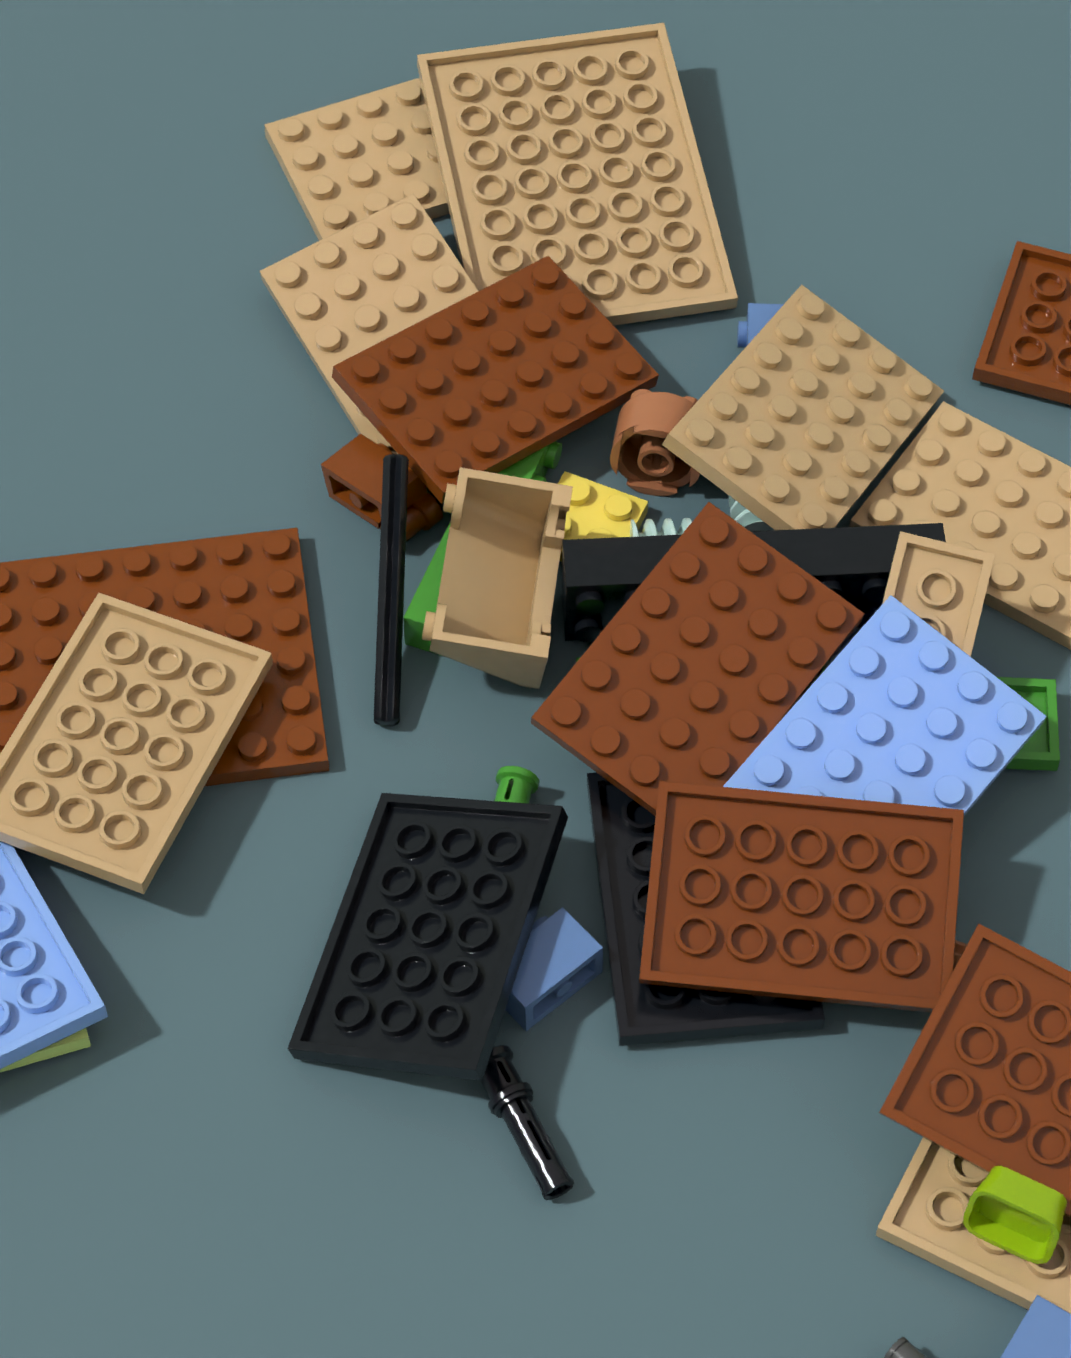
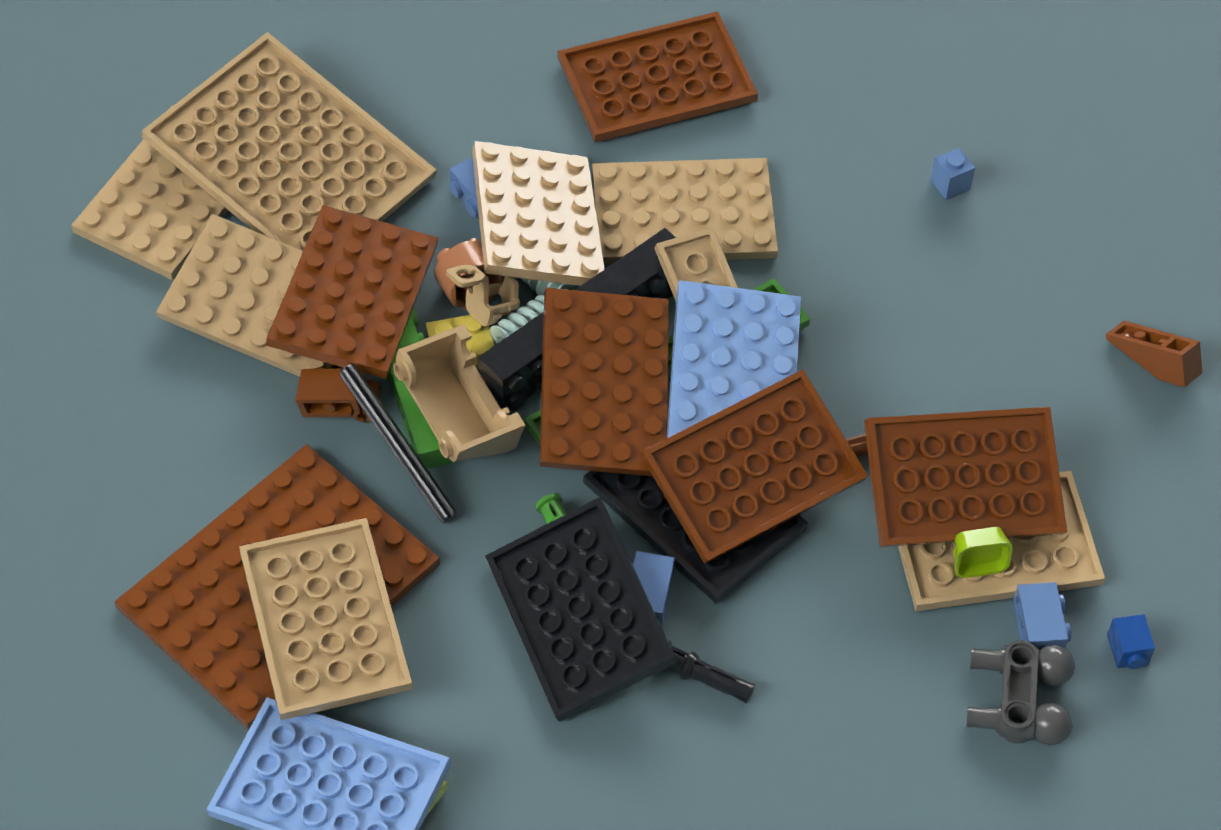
camera: 40 degrees left, 0 degrees up
(643, 471) = (478, 297): none -> tan piece

